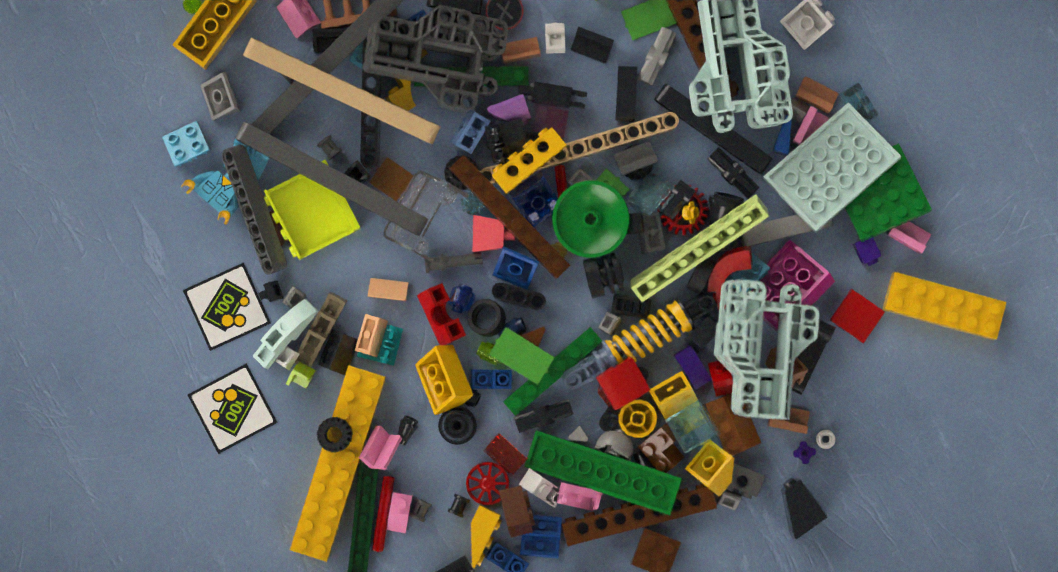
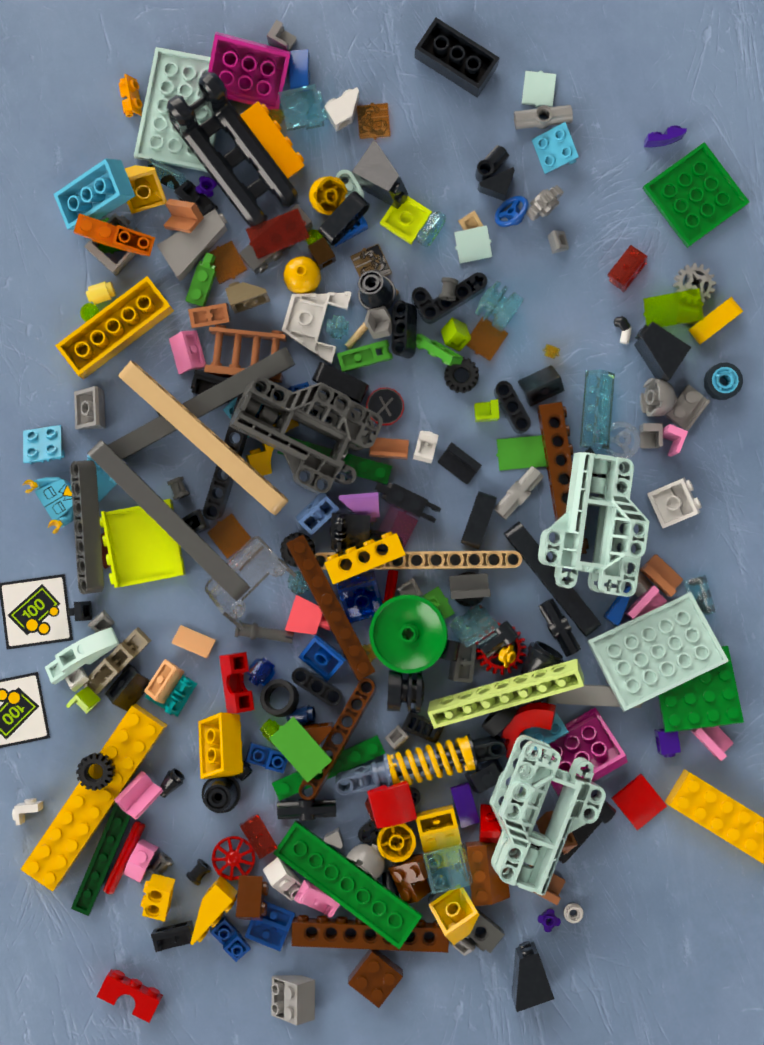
camera: 20 degrees right, 0 degrees up
(278, 490) = (28, 806): none -> white bracket
(427, 538) = (157, 897): none -> yellow brick
(558, 330) = (346, 732): none -> reddish brown beam

